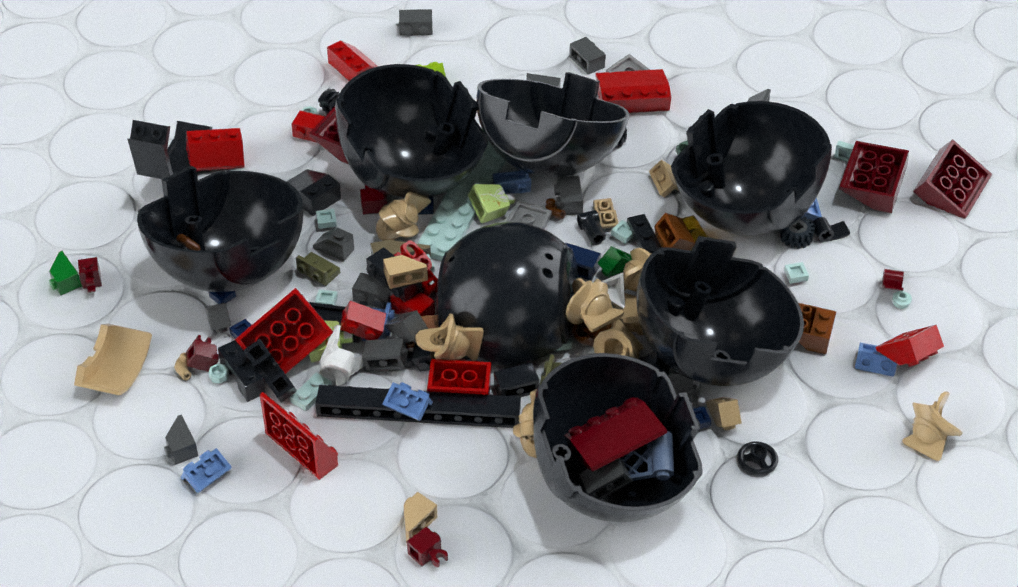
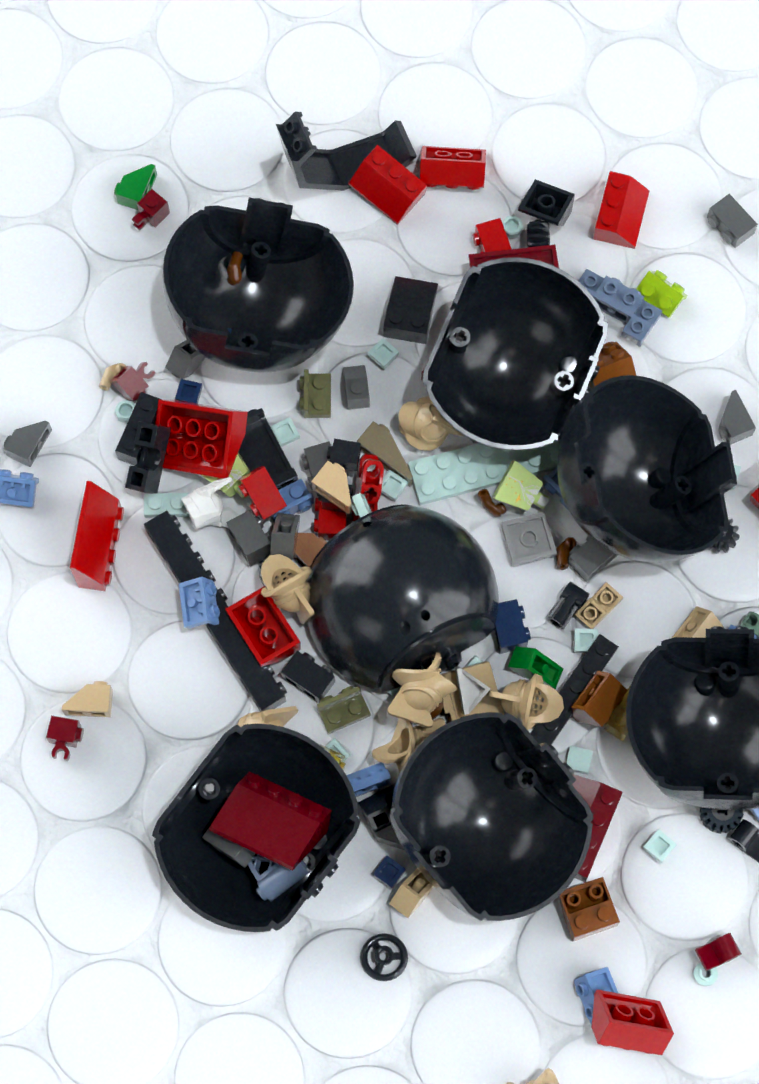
camera: 55 degrees right, 25 degrees up
(116, 360) = (70, 318): tan panel -> none
(242, 114) = (453, 167): none -> red slope
(313, 85) = (547, 203): none -> black slope
(432, 267) = (360, 505): none -> light aqua plate
(478, 222) = (488, 504): none -> reddish brown arm

